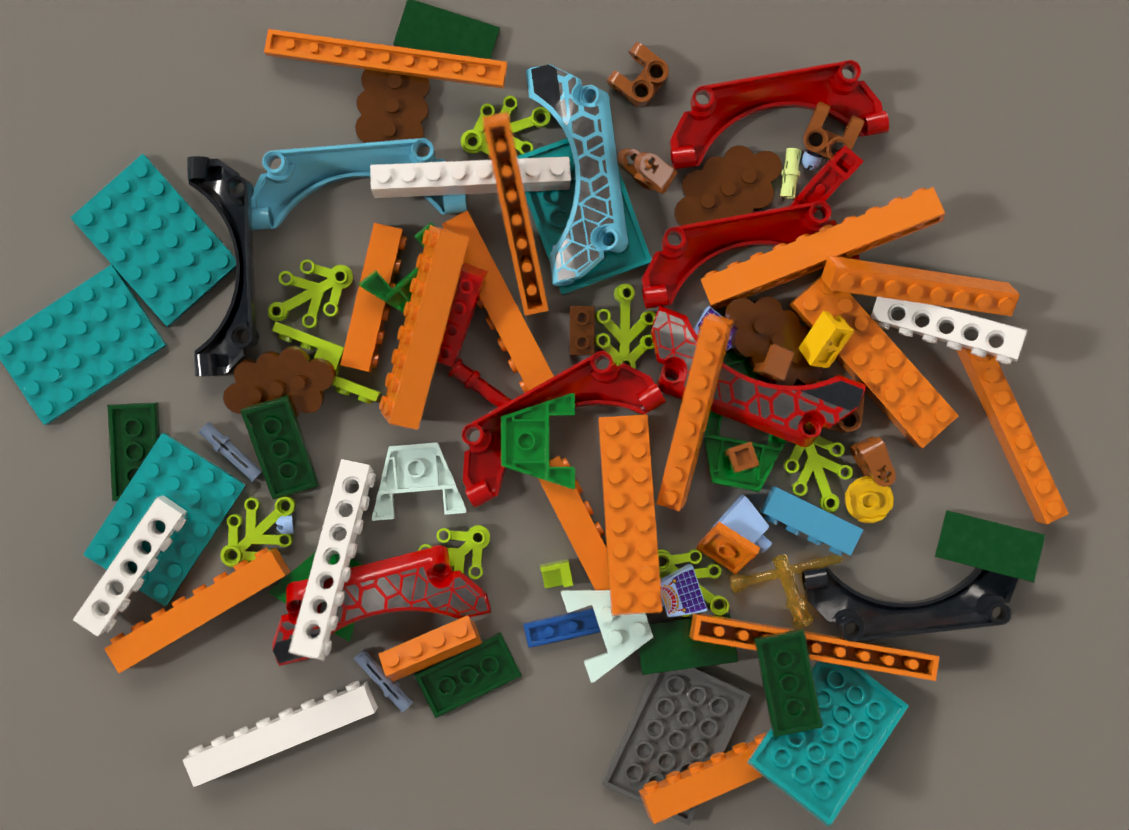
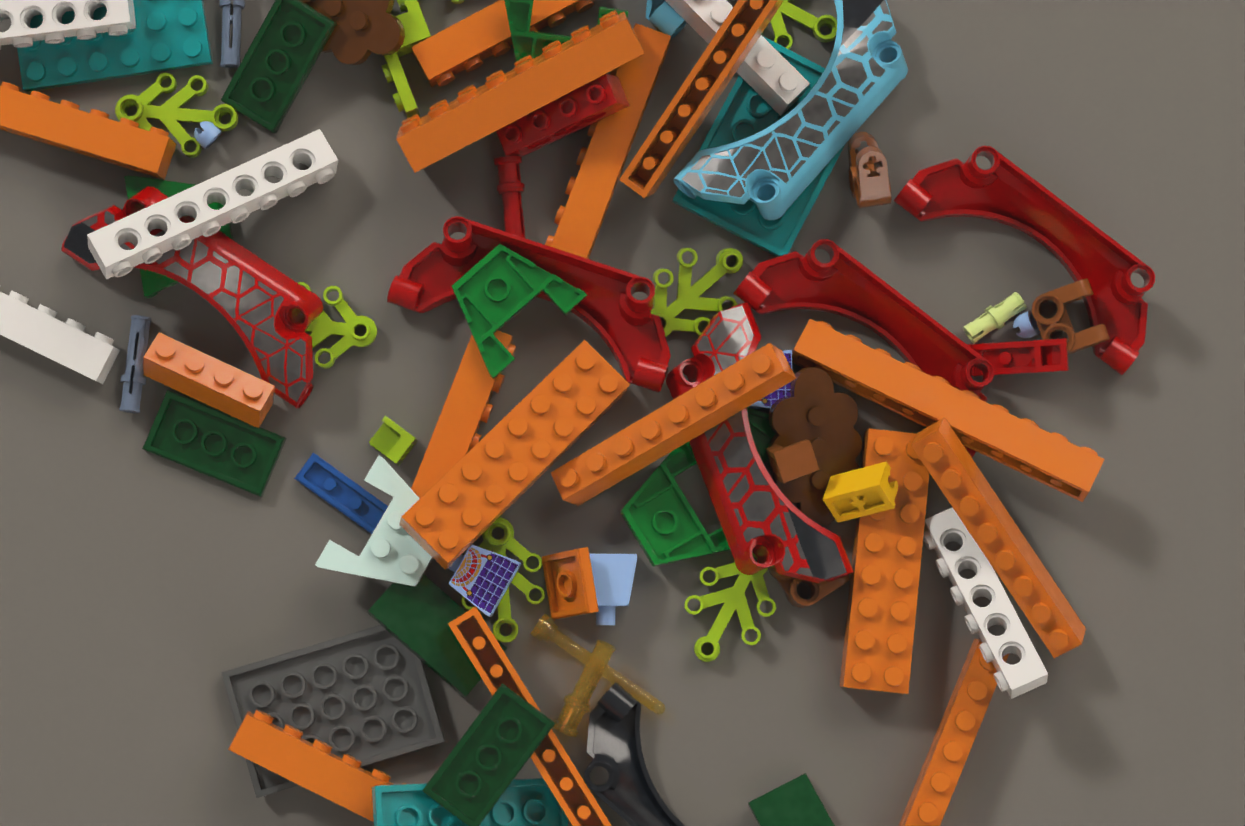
camera: 45 degrees right, 5 degrees down
(413, 470) = (373, 211): light aqua wing -> none
(581, 330) = (655, 249): reddish brown brick -> none
(649, 61) = (952, 94): dark orange piece -> none
(728, 186) = (928, 267): reddish brown plate -> none
(742, 457) = (672, 513): dark orange panel -> none
(811, 520) = (672, 645): dark azure brick -> none
(868, 501) = (745, 684): yellow tile -> none
(874, 459) = (789, 642): dark orange piece -> none

